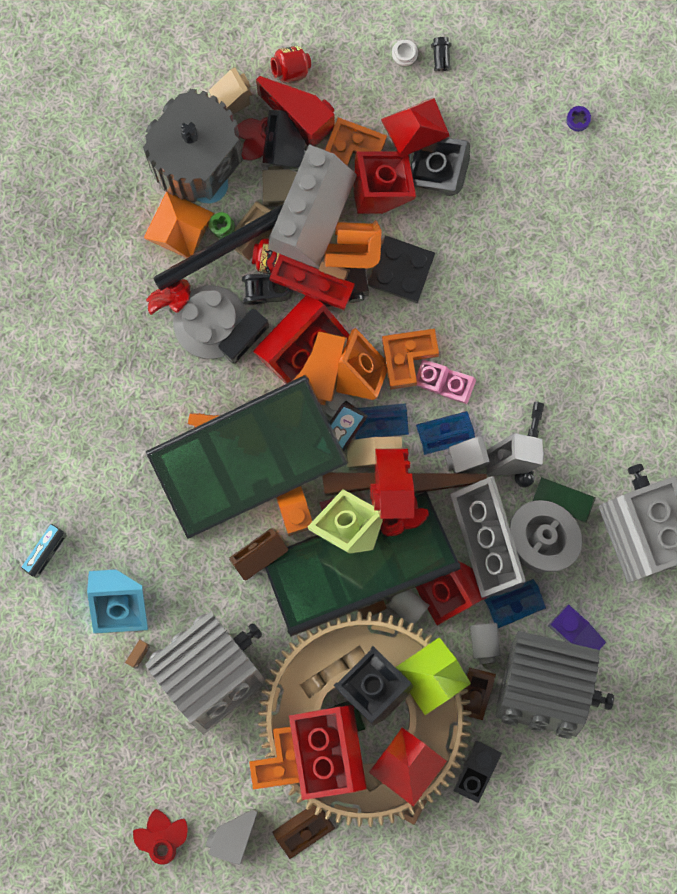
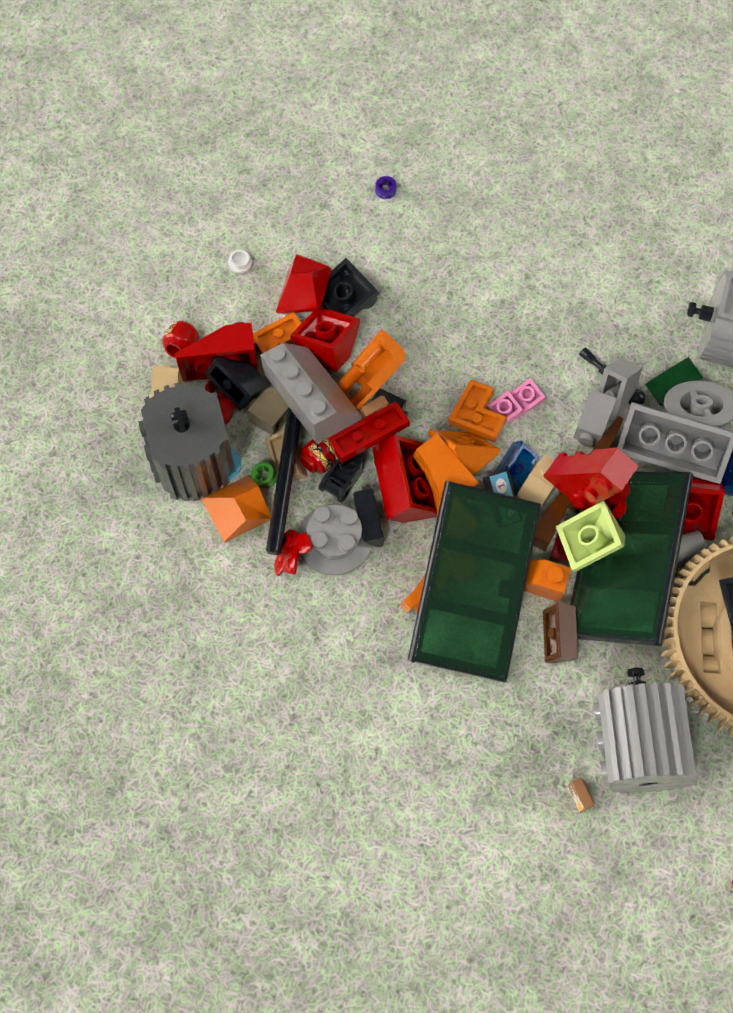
camera: 55 degrees left, 15 degrees down
(44, 551) = (429, 813): slope -> none
(115, 602) = (521, 780): medium azure slope -> none
(401, 269) = (412, 376): black plate -> none
(441, 53) = (262, 239): black pin -> none
(445, 432) = (558, 428): clear blue slope -> none

